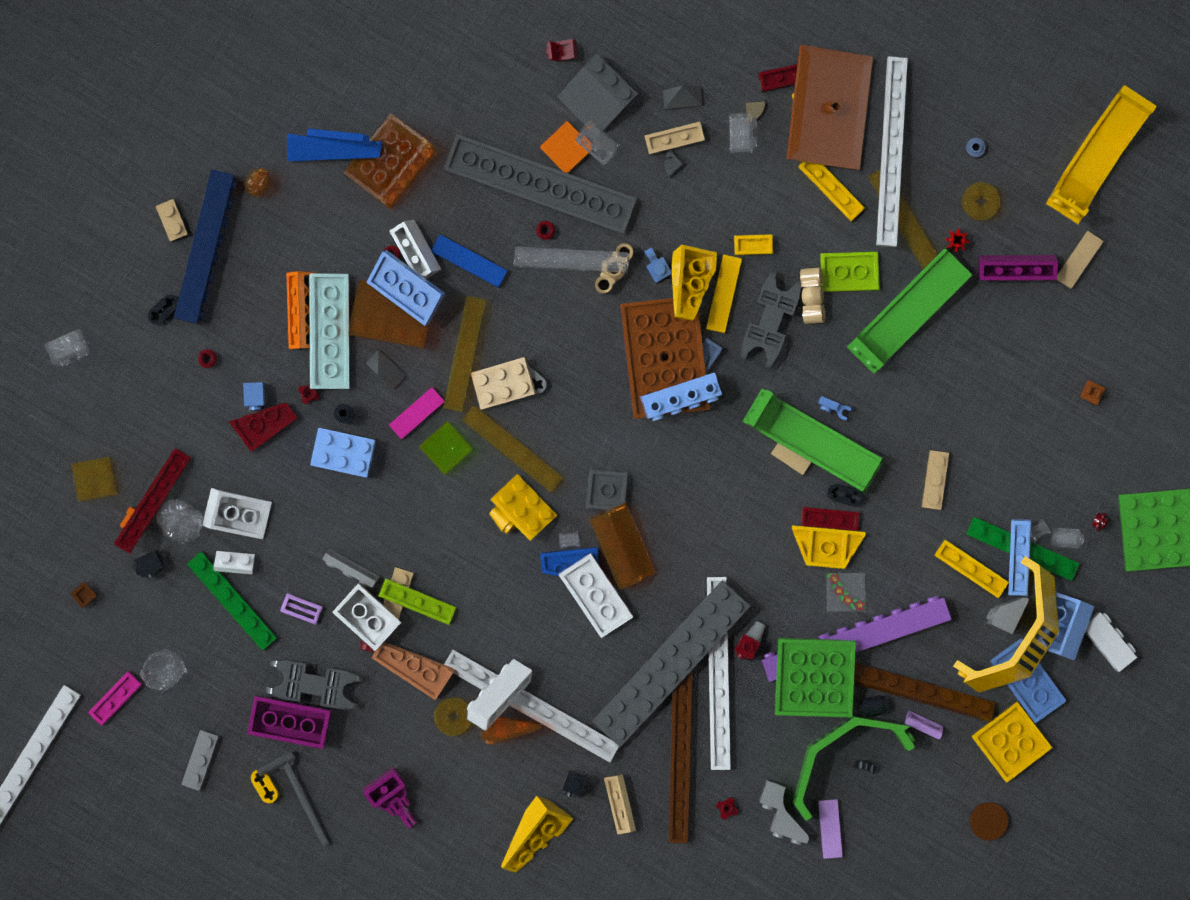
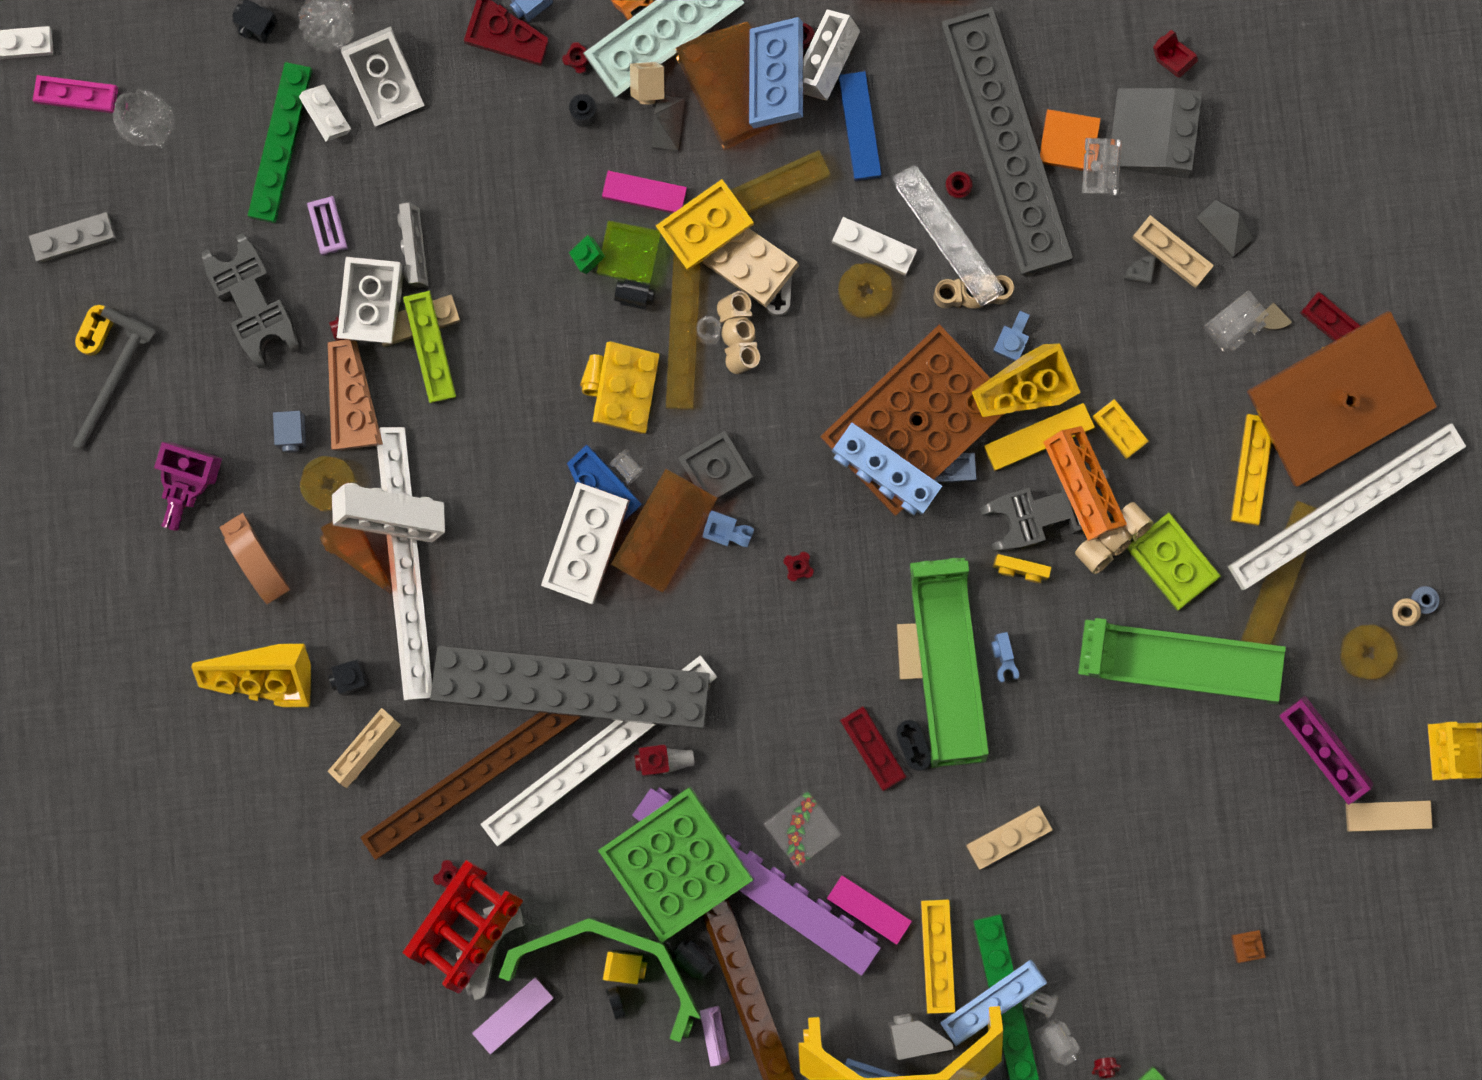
camera: 55 degrees right, 5 degrees down
(289, 722) = (186, 302): magenta brick -> none
(343, 452) = (538, 142): light blue brick -> none
(355, 364) = (647, 82): none -> tan brick
(407, 716) = (289, 431): none -> sand blue brick
(429, 473) = (587, 254): none -> green plate
(463, 394) = (704, 225): none -> yellow plate
(466, 789) = (254, 559): none -> nougat arch
(472, 462) = (634, 294): none -> black brick
(520, 432) = (709, 322): none -> clear bush
(545, 305) = (874, 246): none -> white plate
(546, 424) = (738, 344): none -> tan piece
(577, 332) = (851, 297): none -> clear yellow plate
(645, 511) = (723, 529): none -> medium blue plate
(702, 483) = (793, 572): none -> dark red plate
(746, 826) = (445, 912): none -> red fence
(769, 292) = (1081, 483): none -> orange fence
(784, 367) = (1009, 566): none -> yellow plate
(827, 546) = (839, 768): yellow wing -> none
(850, 747) = (624, 967): none -> yellow slope
(917, 587) = (869, 909): none -> dark pink tile
(956, 235) = (1309, 653): red gear -> none
(974, 168) = (1406, 620): none -> tan plate

